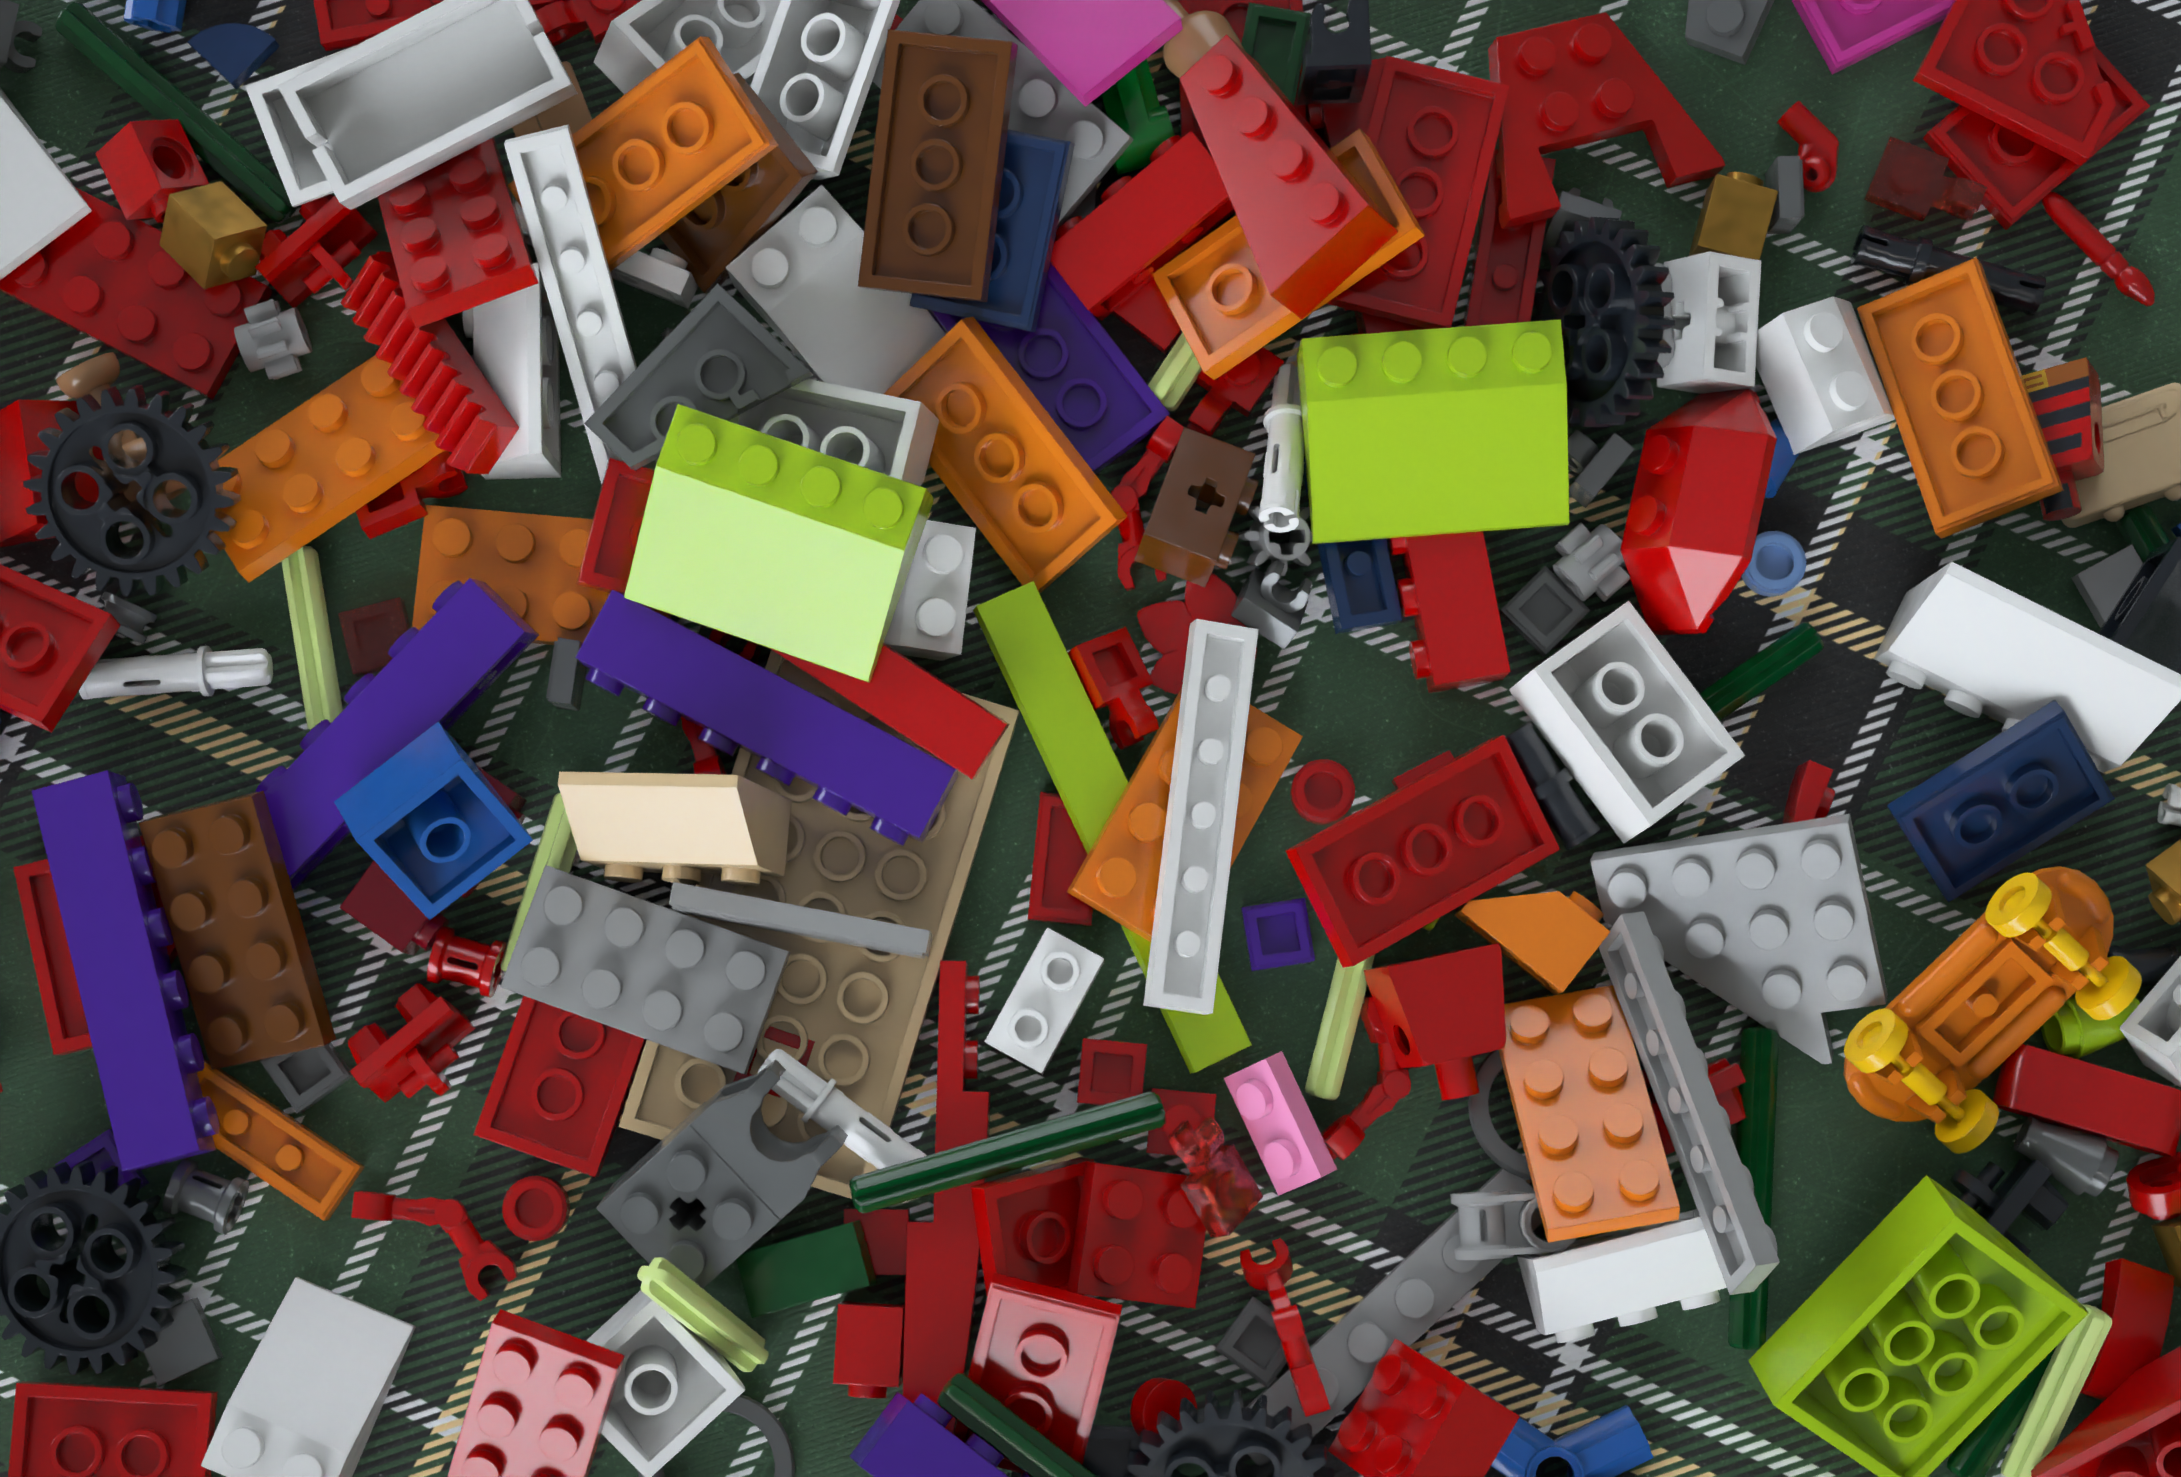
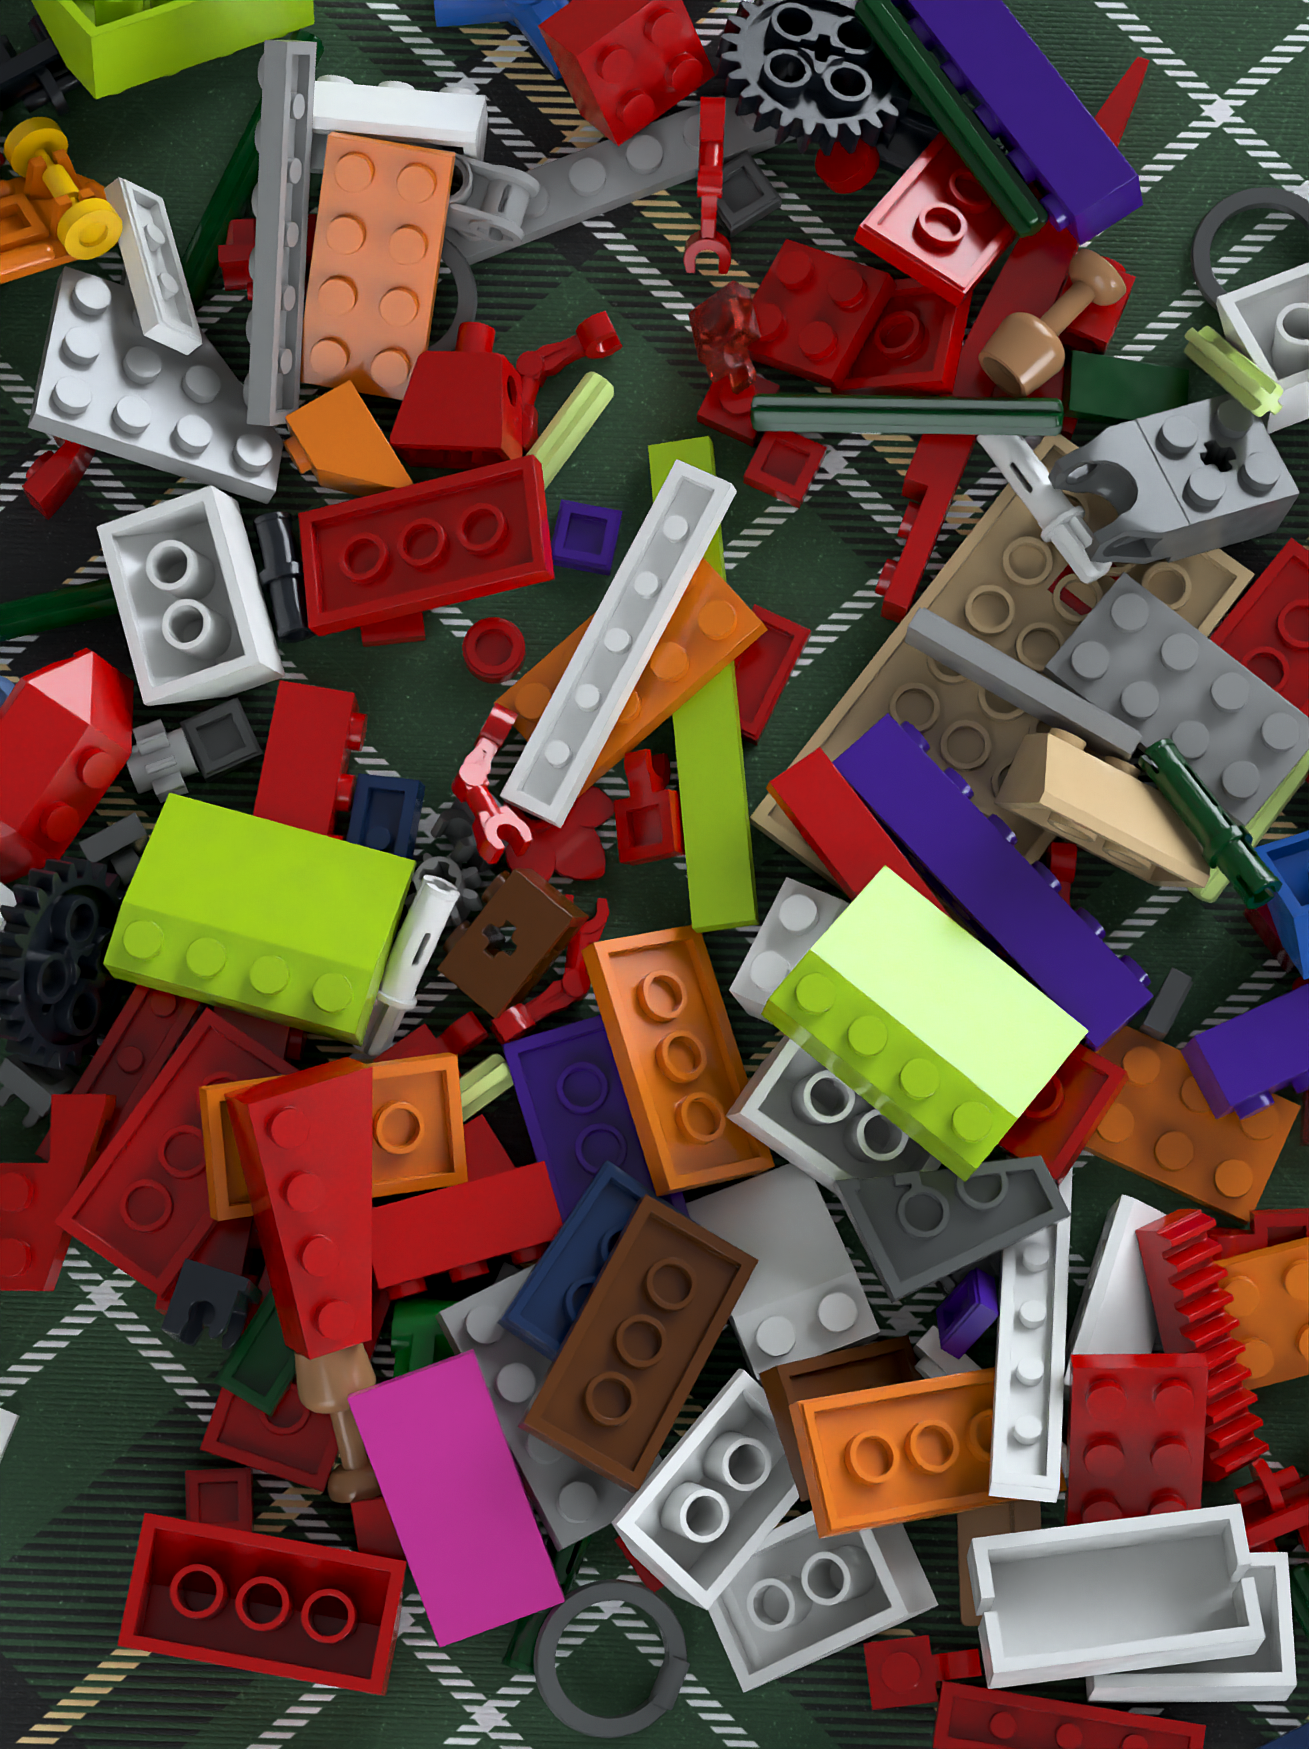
camera: 160 degrees left, 5 degrees down
(565, 829) = (1222, 840): none -> dark green pin
(651, 309) = (967, 1312): none -> dark purple tile
(912, 1253) = (1027, 349): none -> medium nougat piece
(1044, 1001) = (823, 545): white brick -> none
(1280, 1123) = (649, 366): bright pink plate -> none
(1287, 629) = (472, 785): none -> red piece
(1800, 1038) = (154, 267): none -> white tile

